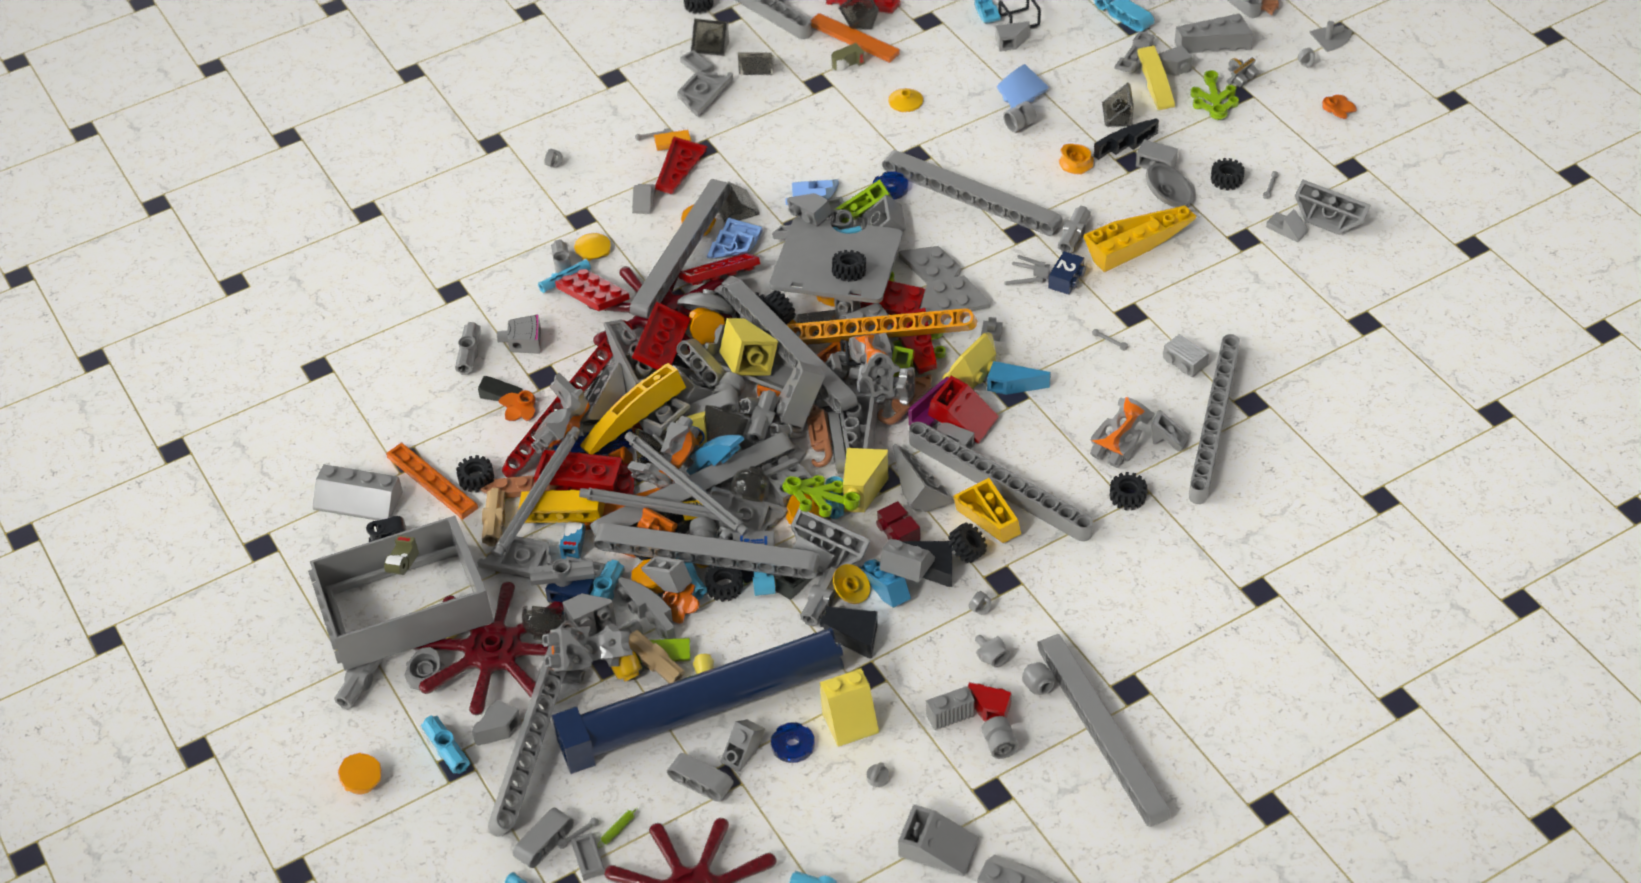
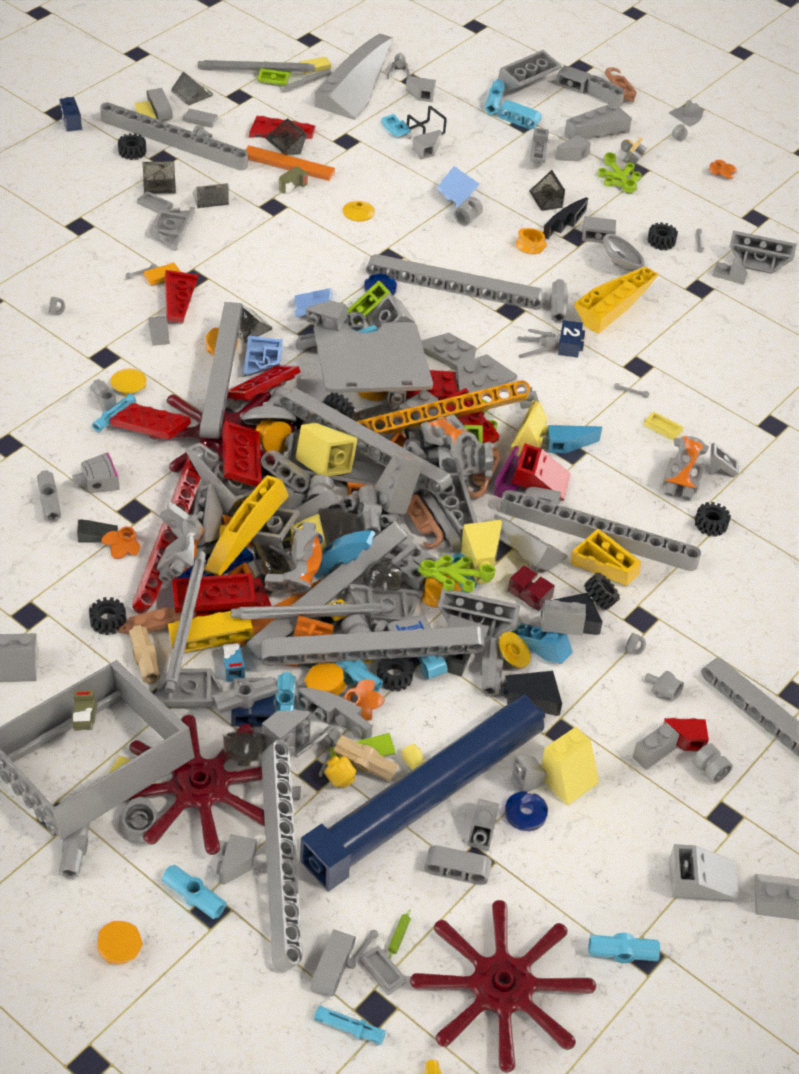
camera: 25 degrees left, 0 degrees up
(385, 527) = (42, 689): black piece -> none
(432, 481) = (65, 631): orange tile -> none
(603, 645) = (309, 762): light grey hips -> none
(668, 573) = (348, 674): light grey slope -> none
(684, 481) = (332, 585): light grey piece -> none
(805, 705) = (527, 773): none -> light grey slope
(848, 265) = (391, 359): black tyre -> none
(878, 775) = (618, 824): light grey tile -> none
(1038, 678) = (718, 701): light grey head -> none
(1125, 383) = (663, 426): none -> light yellow tile
(1156, 78) = (567, 162): light yellow slope -> none
(1185, 355) = (703, 393): light grey brick -> none
(1214, 419) = (753, 444): light grey beam -> none

